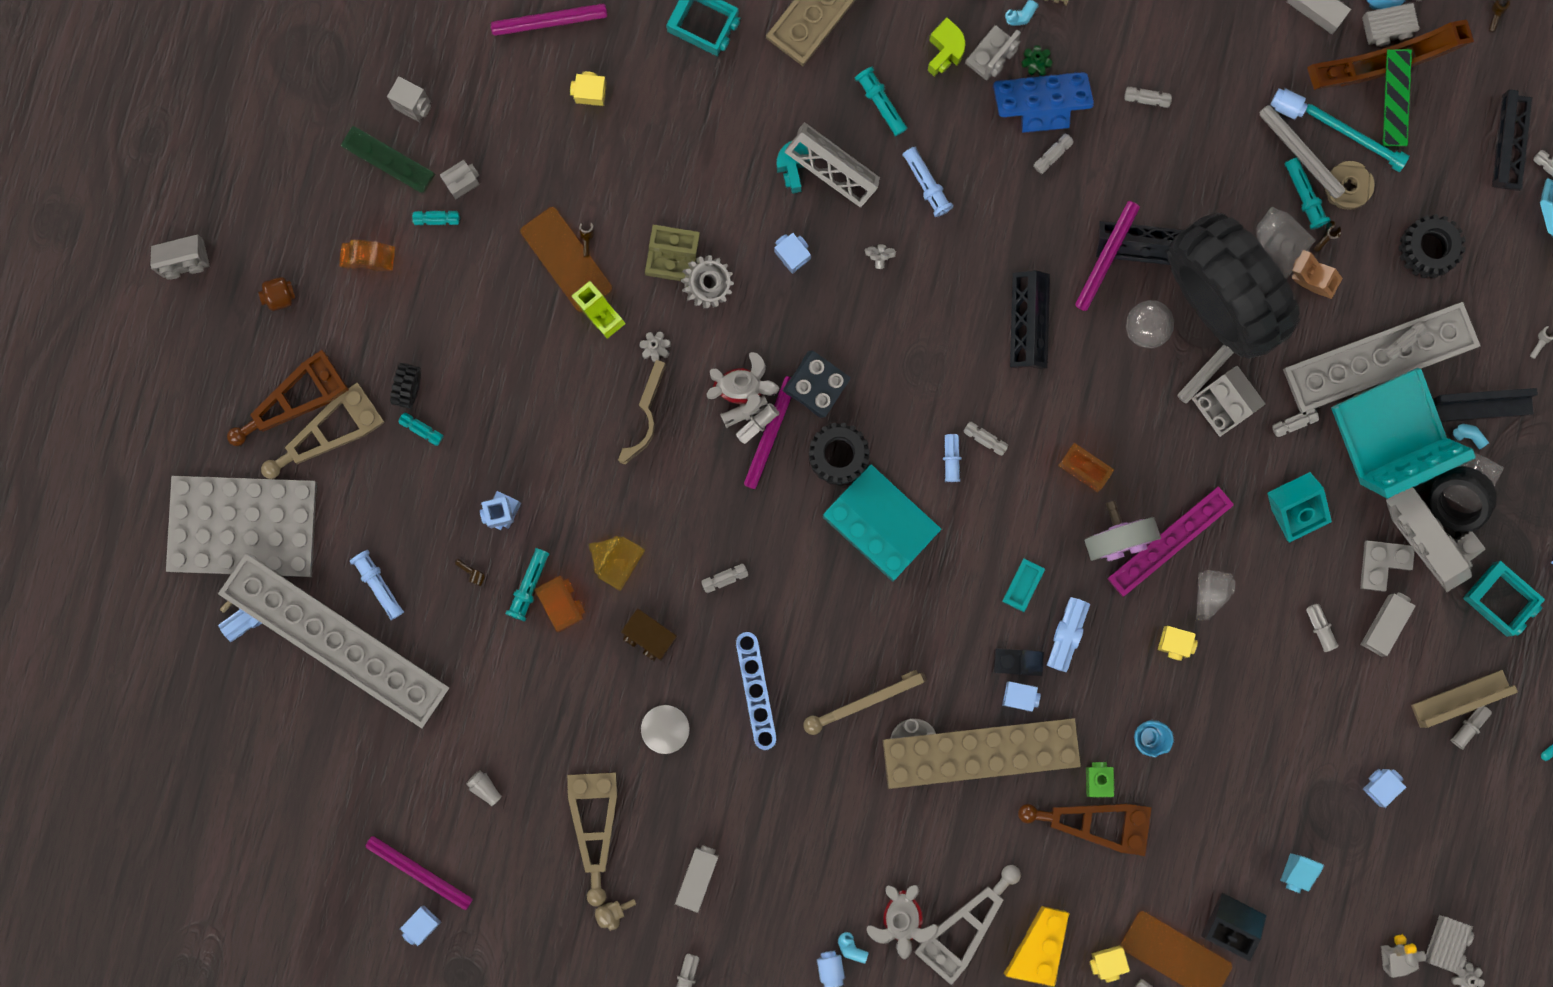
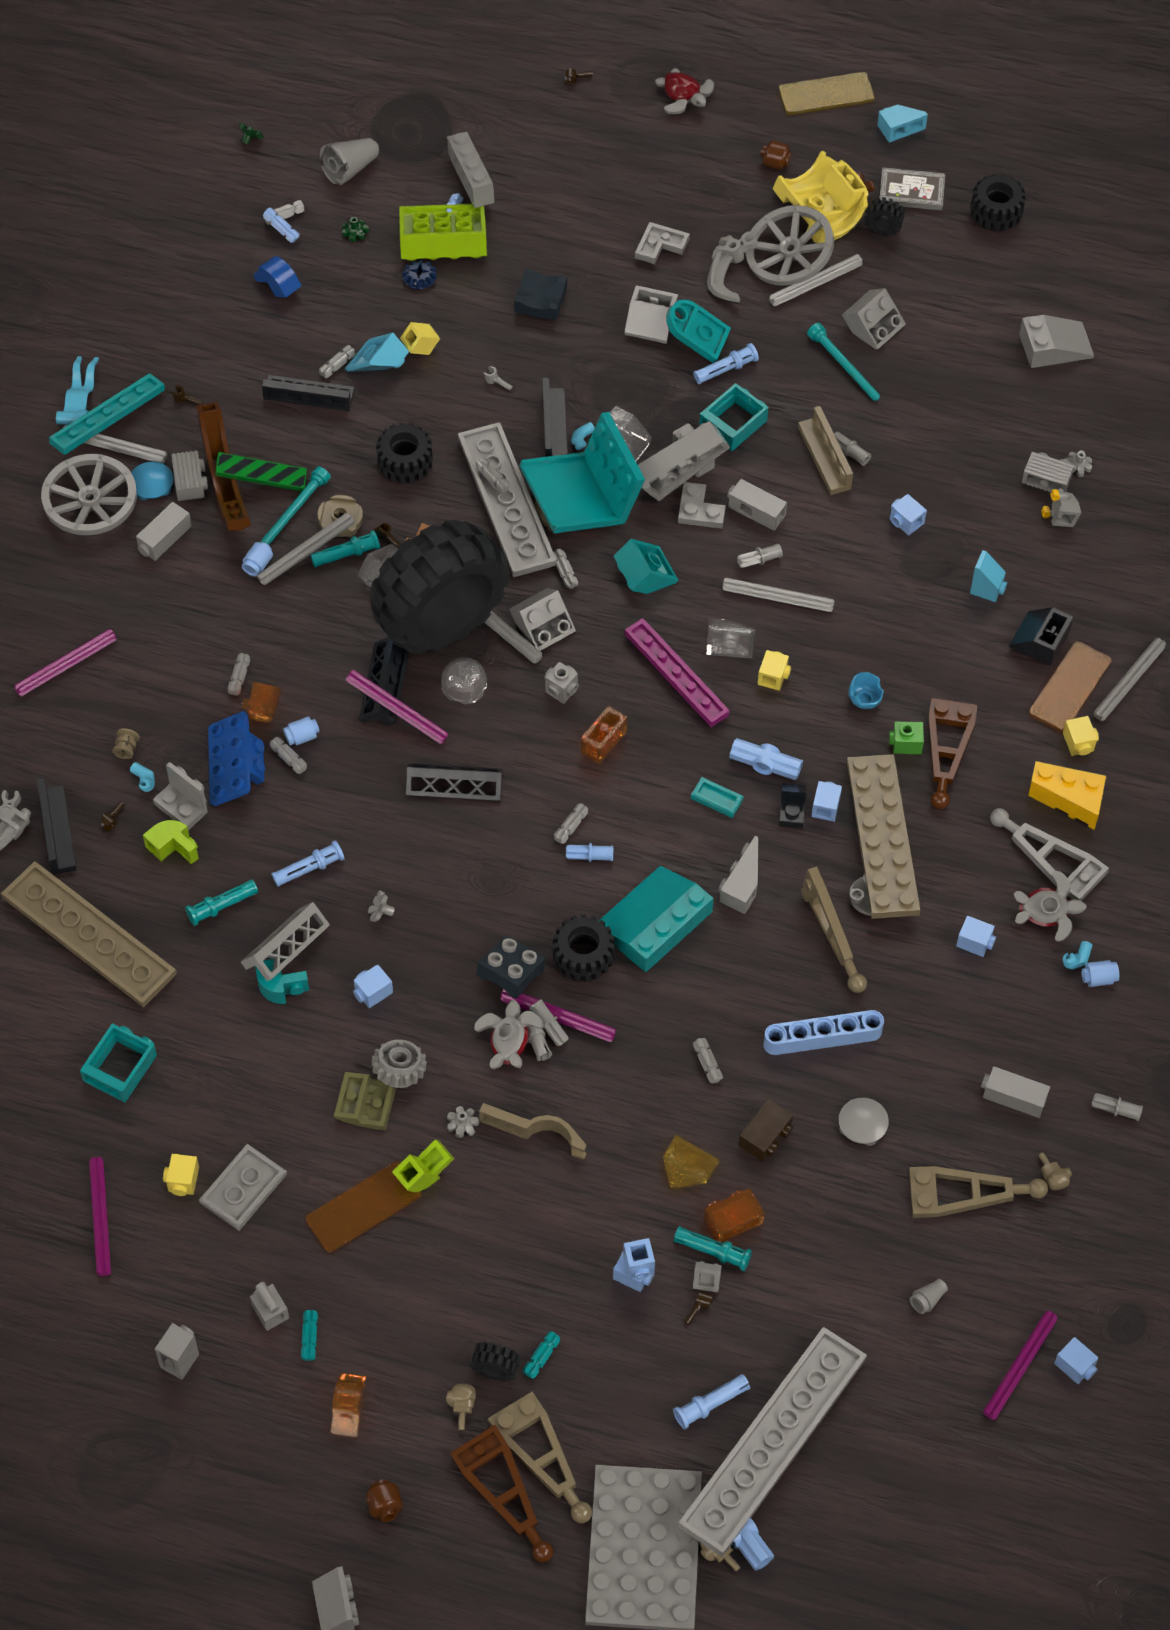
camera: 90 degrees left, 25 degrees down
(374, 359) = (462, 1400): none -> dark tan piece
(387, 160) = (240, 1383): clear green plate -> none
(497, 579) = (707, 1276): none -> light grey tile
(582, 147) = (243, 1187): none -> light grey tile
(586, 236) = (341, 1184): dark brown hand -> none
(868, 846) = (976, 936): none -> light blue brick
(922, 612) = (741, 885): none -> light grey slope
(1037, 60) = (193, 765): dark green plant -> none
(1080, 163) = (301, 731): none -> light blue brick
(1111, 122) = (262, 702): none -> clear orange brick
(1122, 536) = (674, 701): light grey wheel -> none
(1143, 428) = (561, 682): none -> light grey brick
(1274, 648) = (778, 594): none -> light grey axle
(1458, 520) = (658, 423): black tyre -> none

